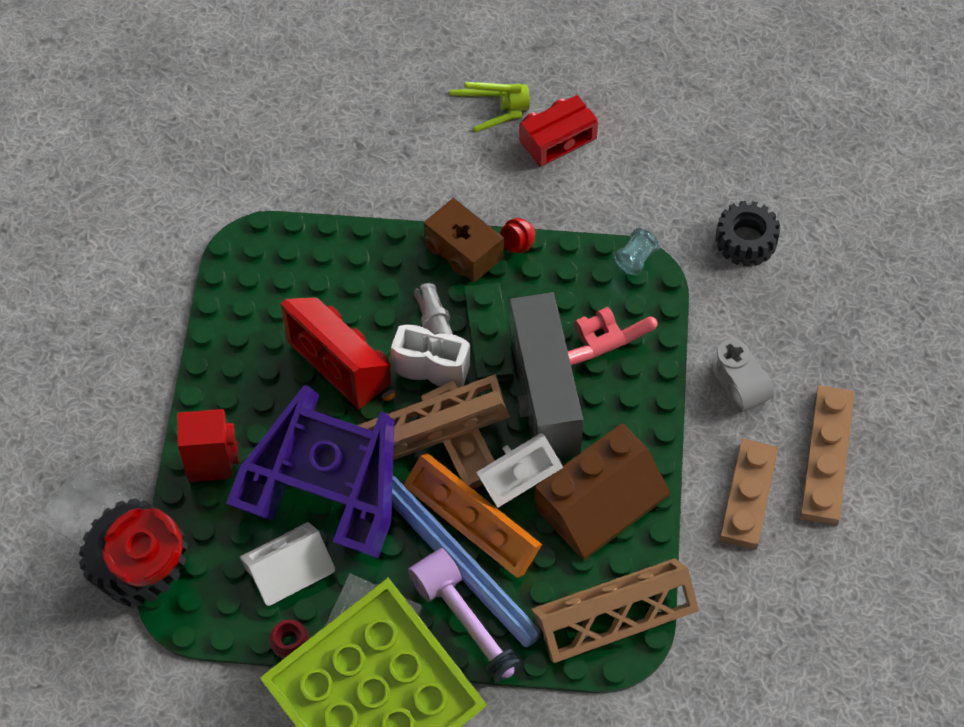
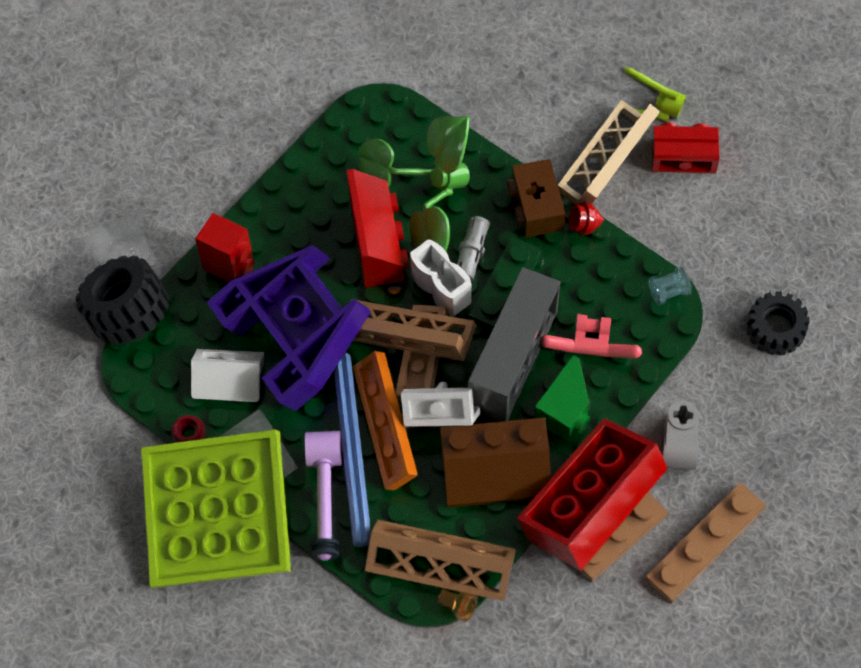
camera: 35 degrees right, 5 degrees up
(142, 546) = (120, 299): red tile -> none
(361, 225) = (446, 143): none -> bright green plant
(506, 179) = (618, 155): none -> tan fence
(625, 400) = (565, 402): none -> green slope
(664, 637) = (462, 604): none -> clear orange piece
(708, 467) = (592, 493): none -> red brick

